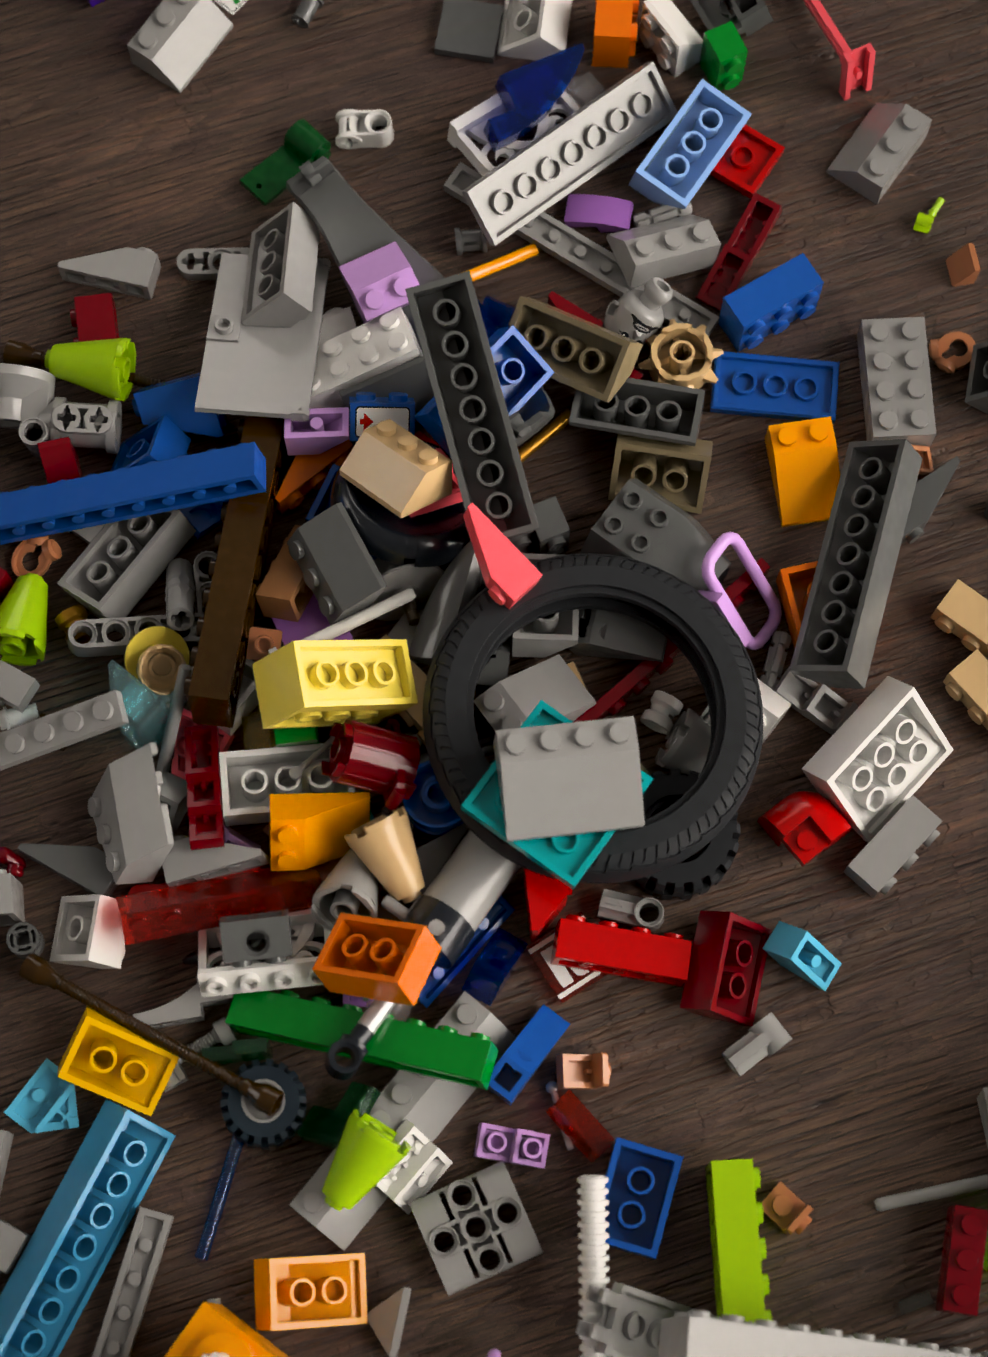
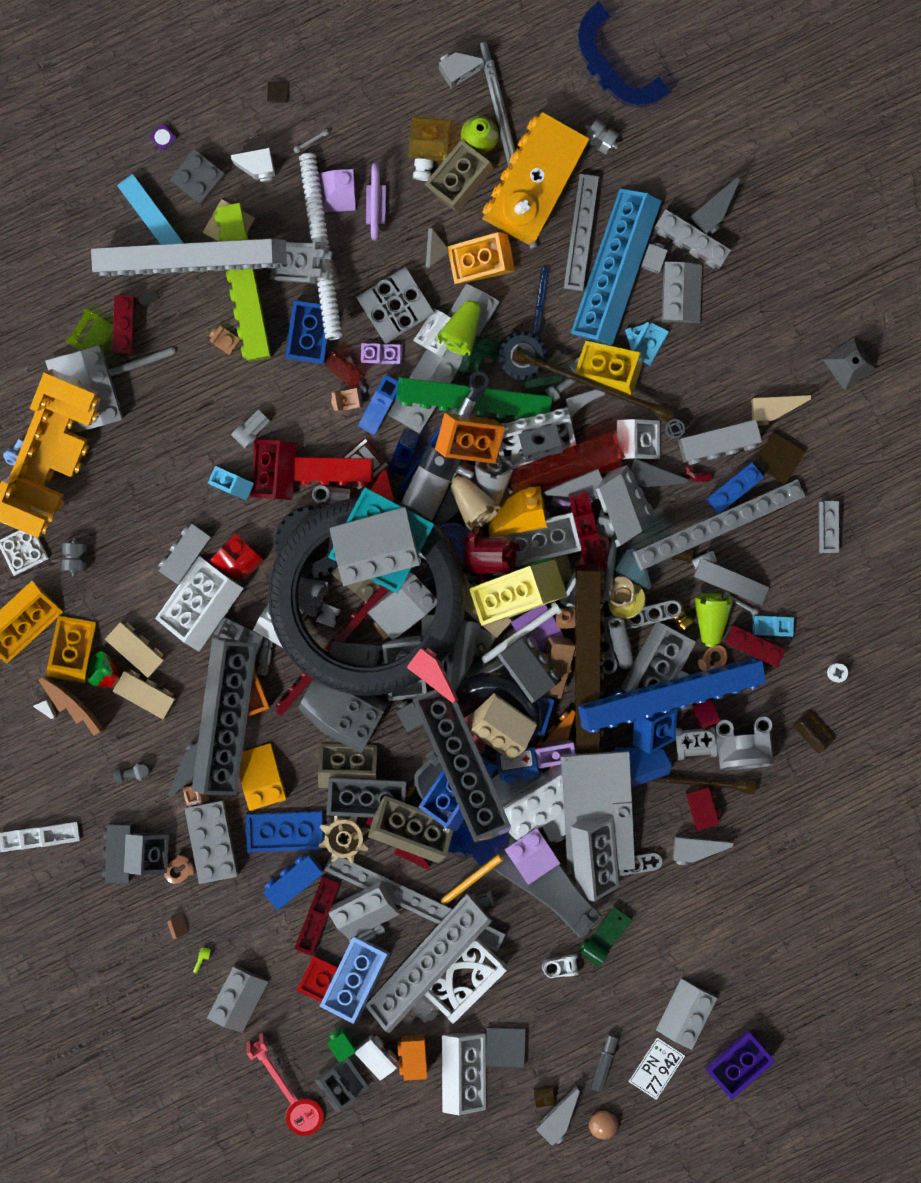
camera: 170 degrees right, 15 degrees up
(95, 365) = (697, 778): lime cone -> none
(530, 95) = (457, 996): clear blue slope -> none
(598, 211) = (406, 930): medium lavender slope -> none
(639, 312) = (374, 861): light grey piece -> none
(722, 602) = (299, 677): lavender bar -> none

